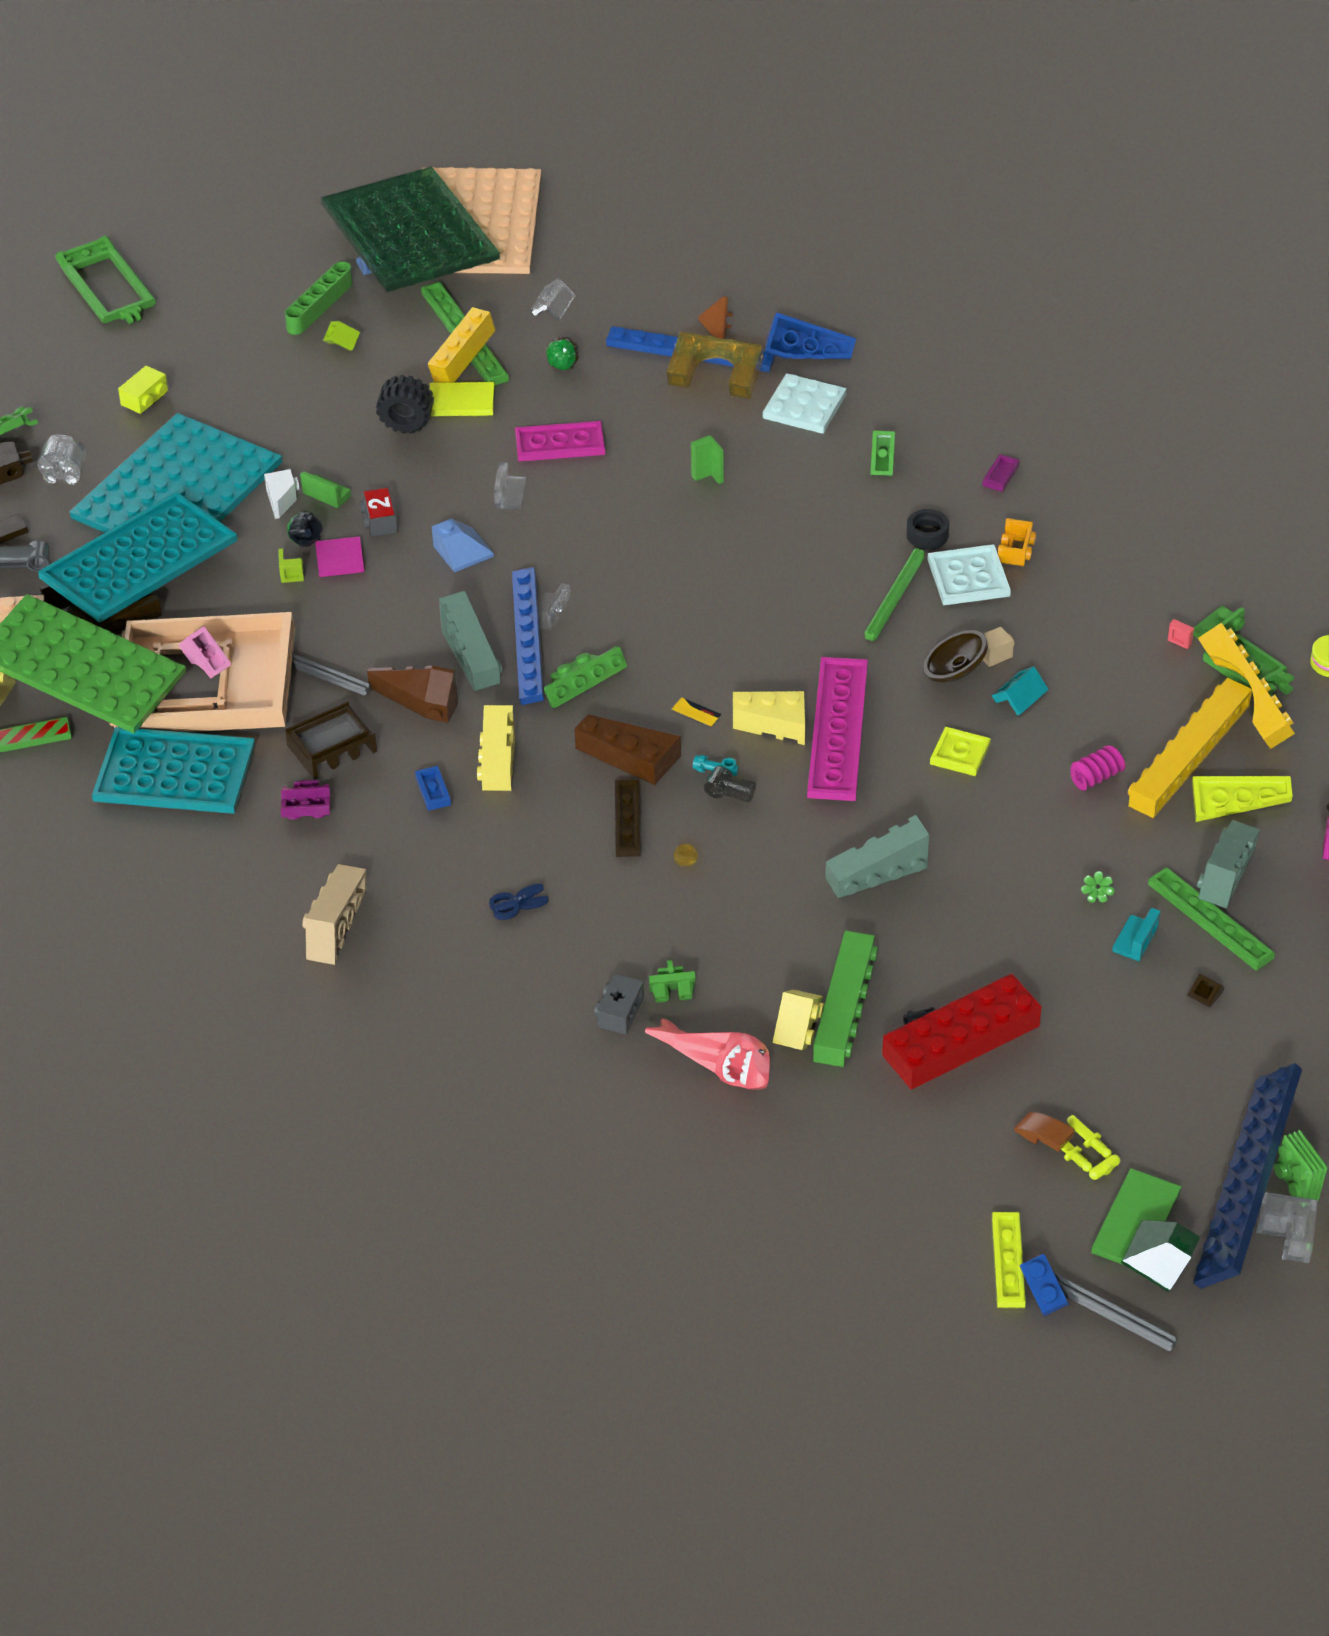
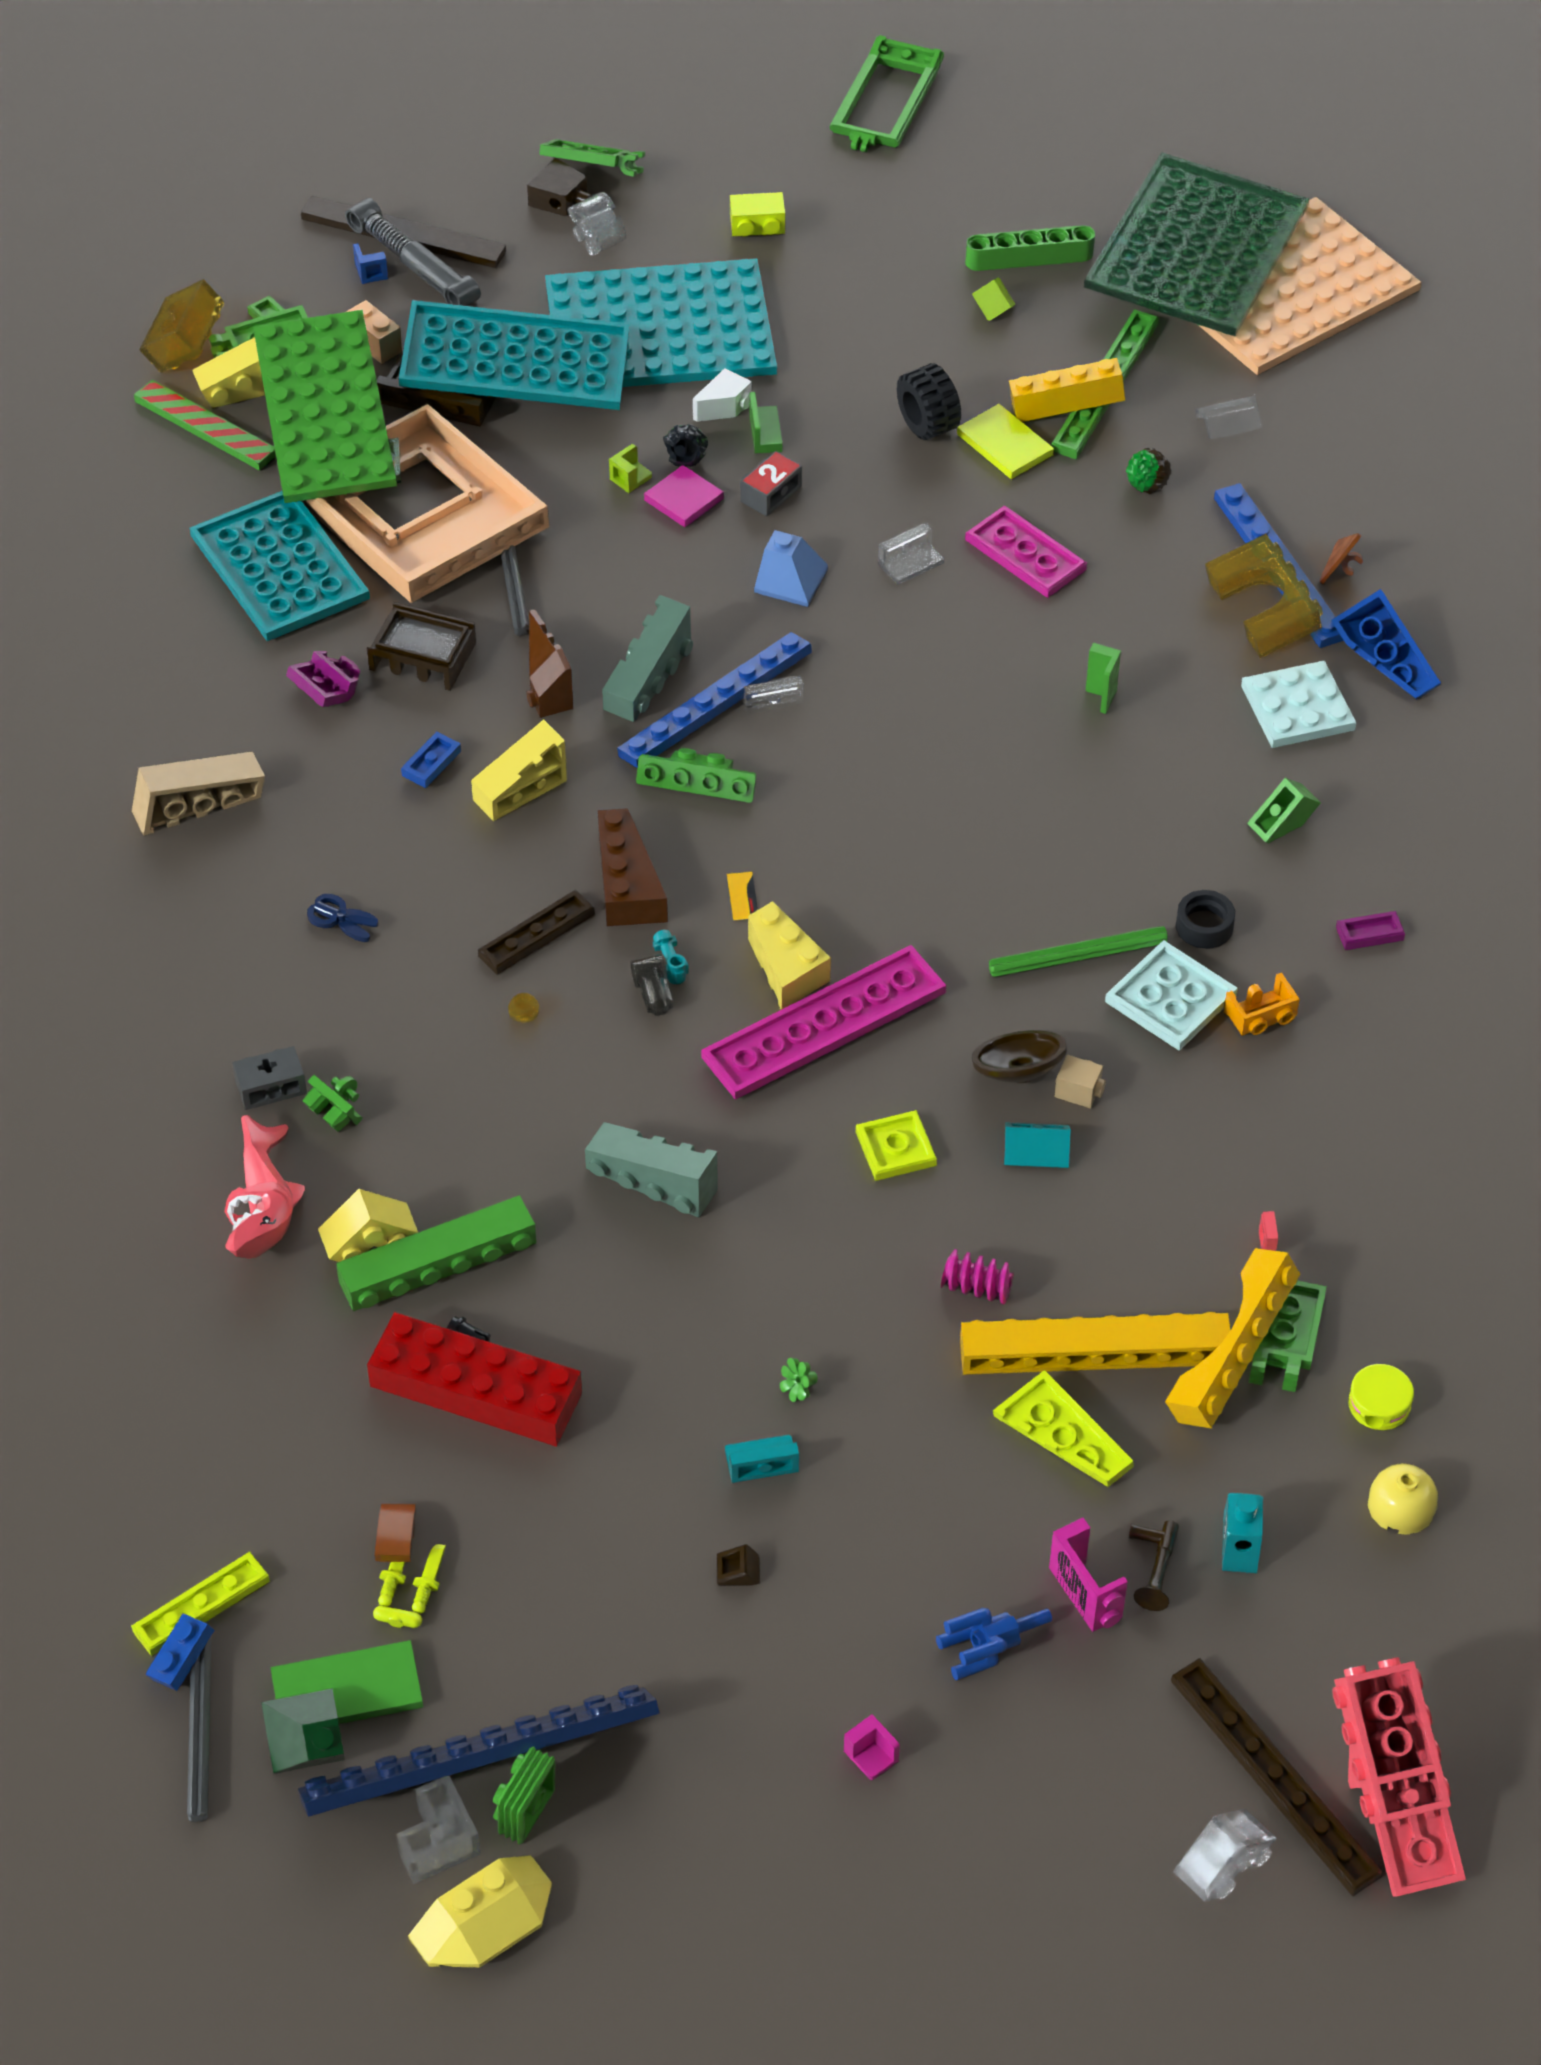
camera: 50 degrees right, 5 degrees up
(204, 652) = (422, 479): bright pink arch -> none
(1211, 919) = (852, 1513): bright green tile -> none
(1227, 863) = (935, 1475): sand green wedge -> none
(1229, 619) = (1326, 1263): bright green bracket -> none

